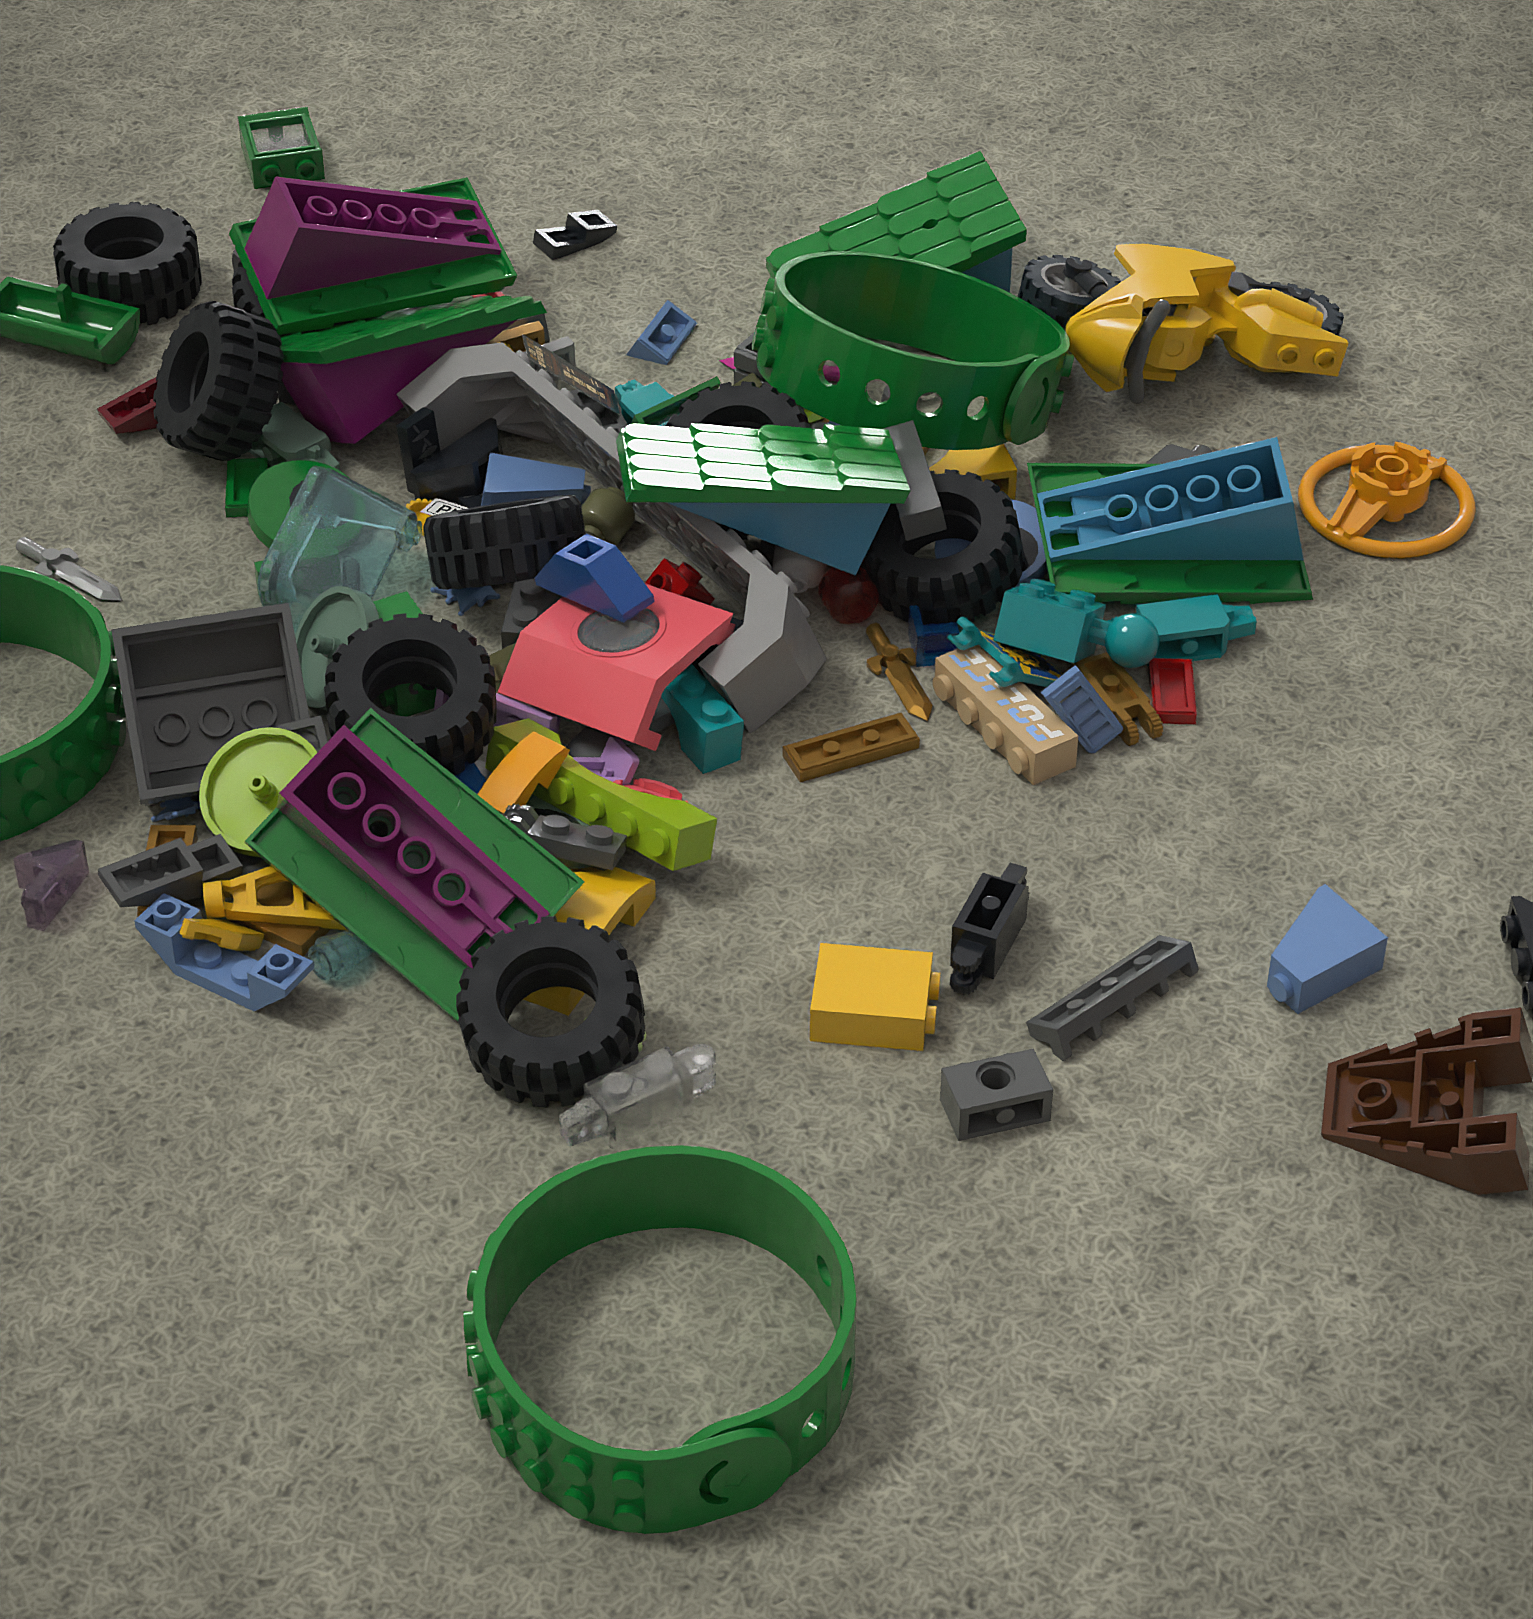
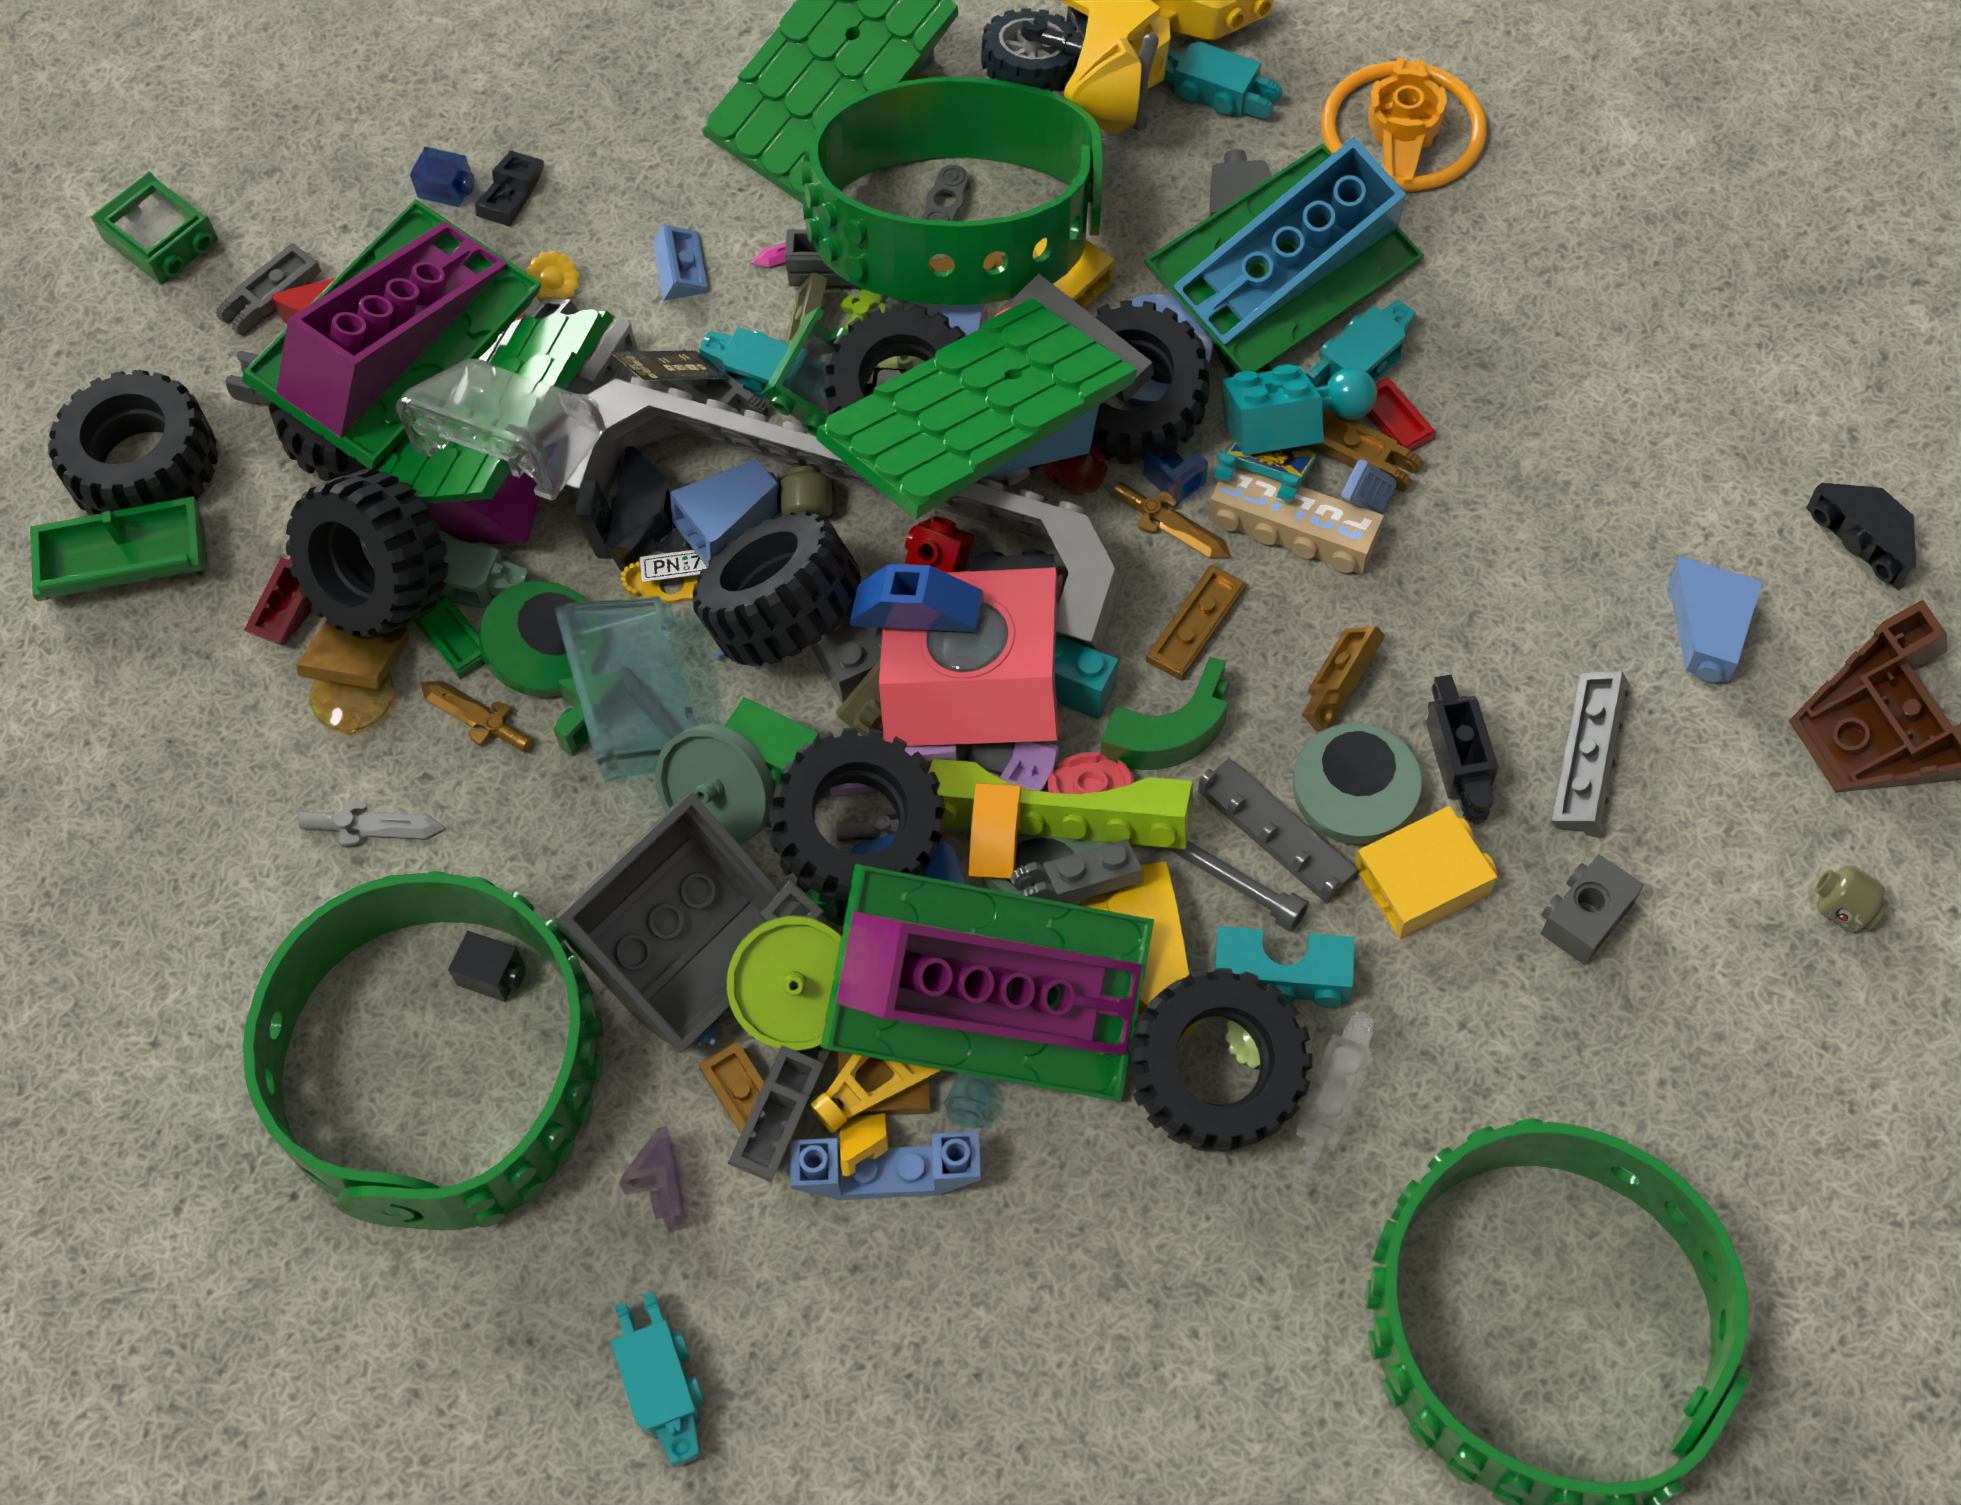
camera: 30 degrees left, 20 degrees up
(57, 687) = (487, 966): none -> black brick
(136, 487) = (350, 706): none -> clear yellow dish
(157, 460) = (351, 659): none -> pearl gold tile
(214, 540) = (476, 715): none -> pearl gold sword
(390, 321) = (505, 416): none -> clear windscreen
(526, 203) = (442, 177): none -> clear blue brick
(554, 295) = (556, 275): none -> yellow piece
(712, 1015) = (1321, 976): none -> teal arch
(727, 965) = (1285, 908): none -> dark grey piece
(753, 805) = (1172, 738): none -> green arch
(776, 913) = (1277, 830): none -> dark grey hinge
(873, 904) = (1356, 783): none -> sand green piece
(932, 837) = (1340, 674): none -> pearl gold hinge
(1240, 397) = (1221, 81): none -> teal hinge
(1248, 1205) = (1851, 898): none -> olive head

